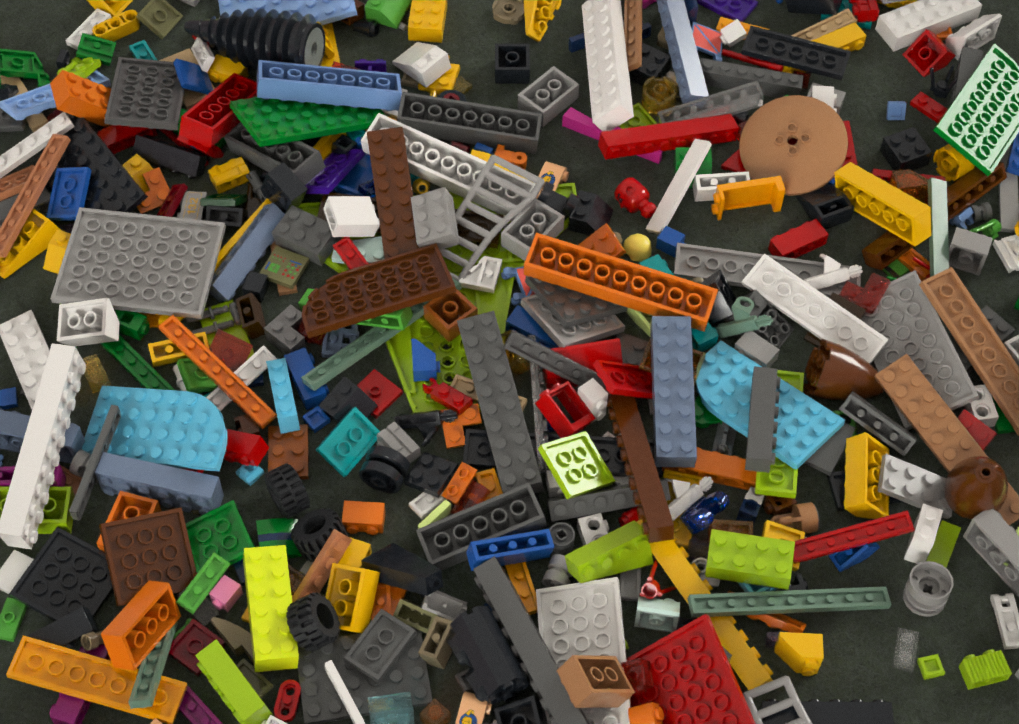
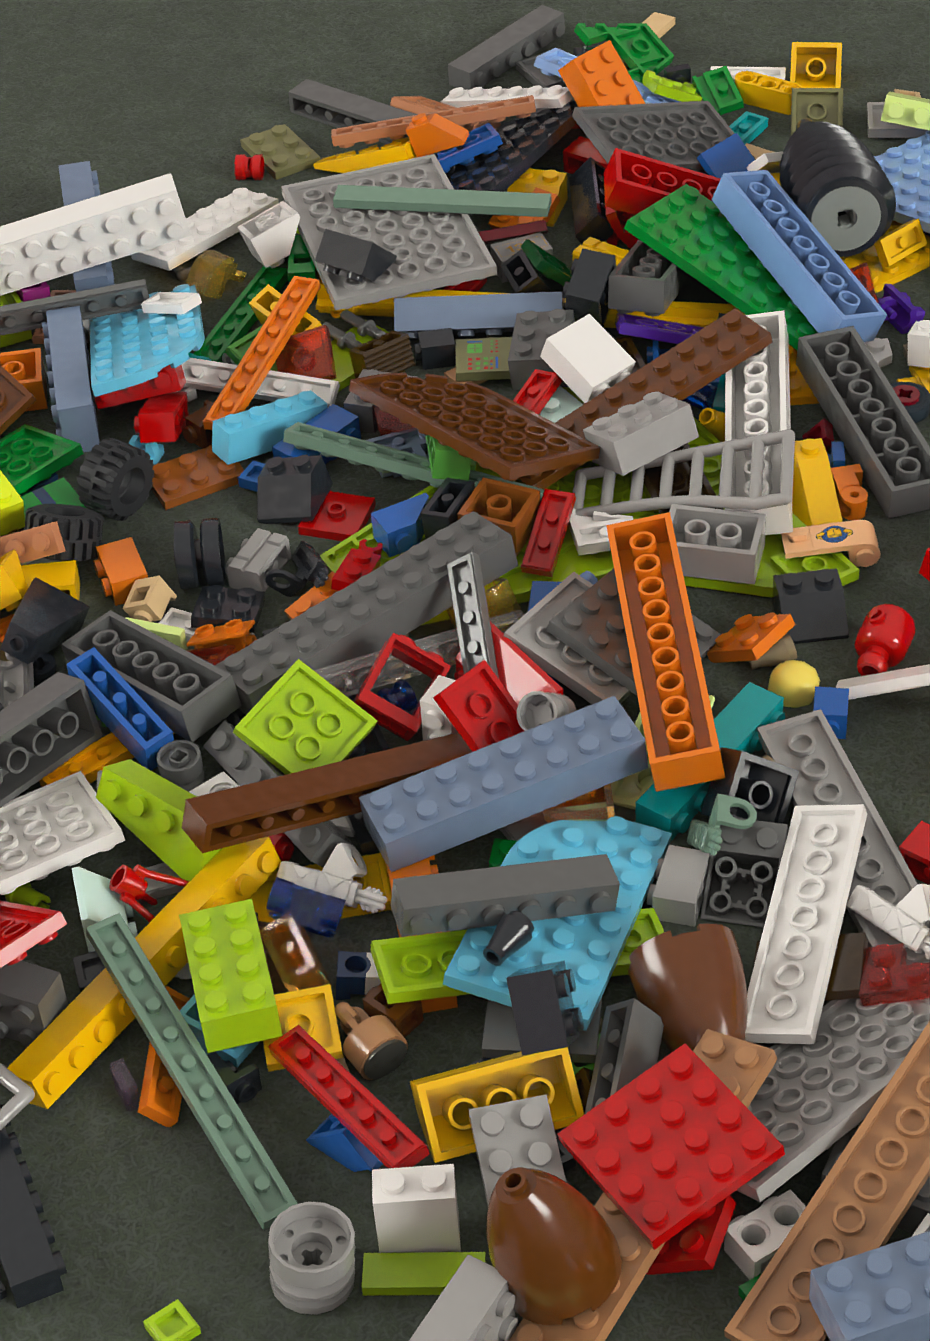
camera: 70 degrees right, 15 degrees down
(50, 199) = (434, 134): none -> orange slope
(137, 400) = (171, 302): none -> white tile
(139, 223) = (442, 200): none -> sand green tile
(174, 287) = (353, 256): none -> black slope
(348, 442) = (237, 504): teal plate -> none
(395, 510) = (149, 599): none -> tan brick
(432, 334) = (445, 505): none -> black brick
(475, 294) = (548, 533): none -> red tile
(557, 201) = (784, 539): black piece -> none
(635, 352) = (542, 707): none -> light grey wheel
(791, 427) = (509, 936): none -> black cone
(800, 651) = (102, 1117): yellow slope -> none
(846, 430) = (544, 1007): none -> black brick
(905, 650) = (189, 1278): clear plate -> none
(939, 416) = (670, 1145): none -> red plate

